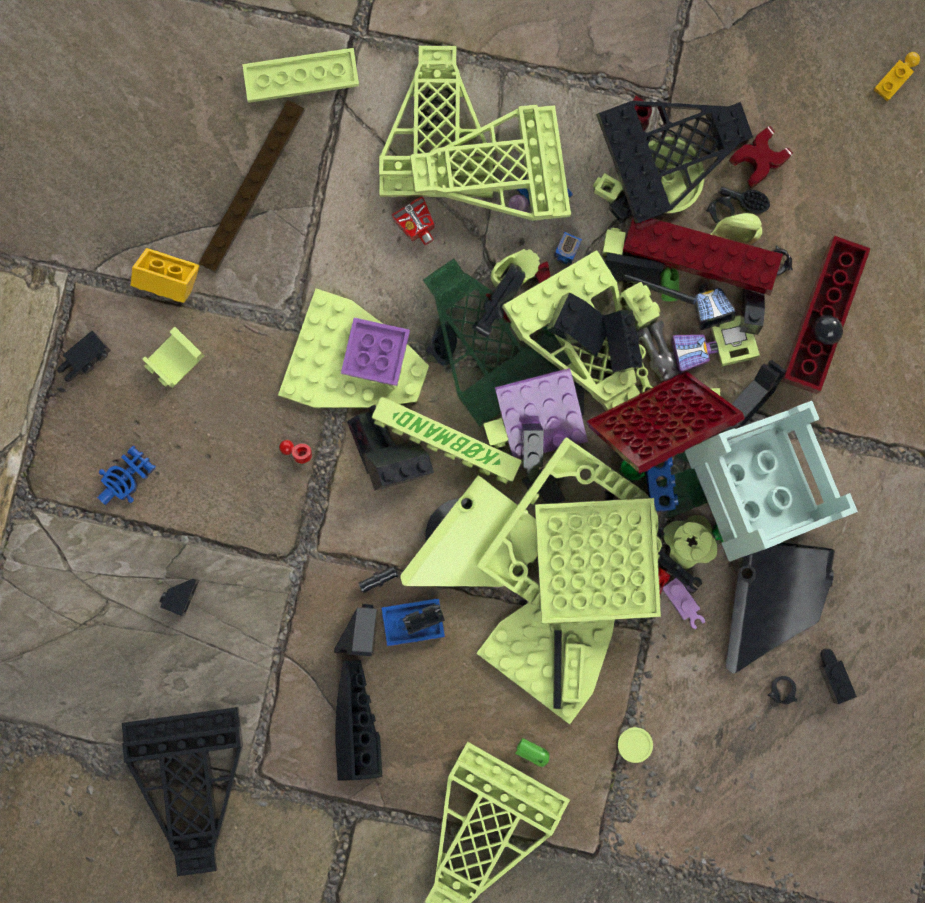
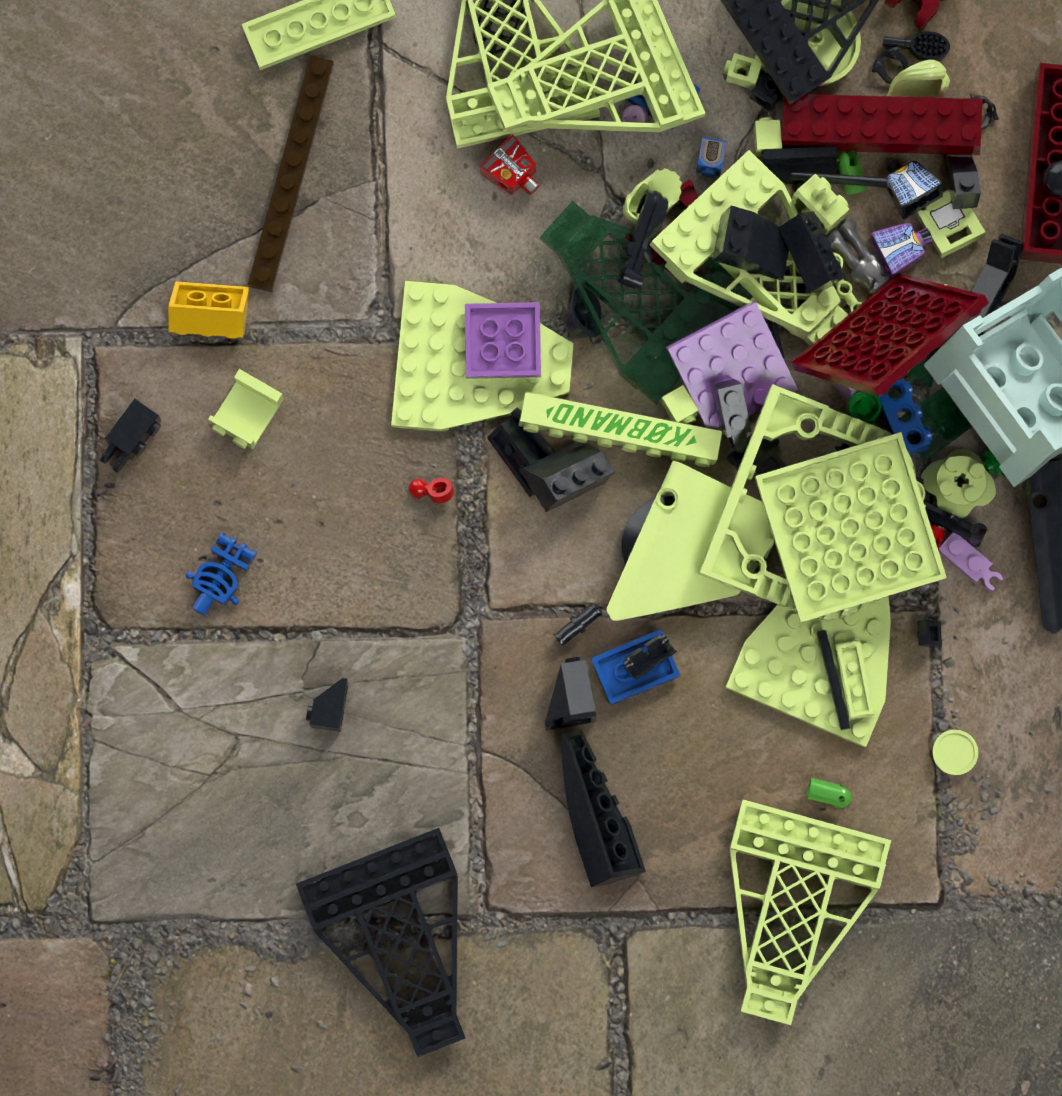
camera: 20 degrees left, 5 degrees down
(638, 650) = (929, 633): none -> black plate

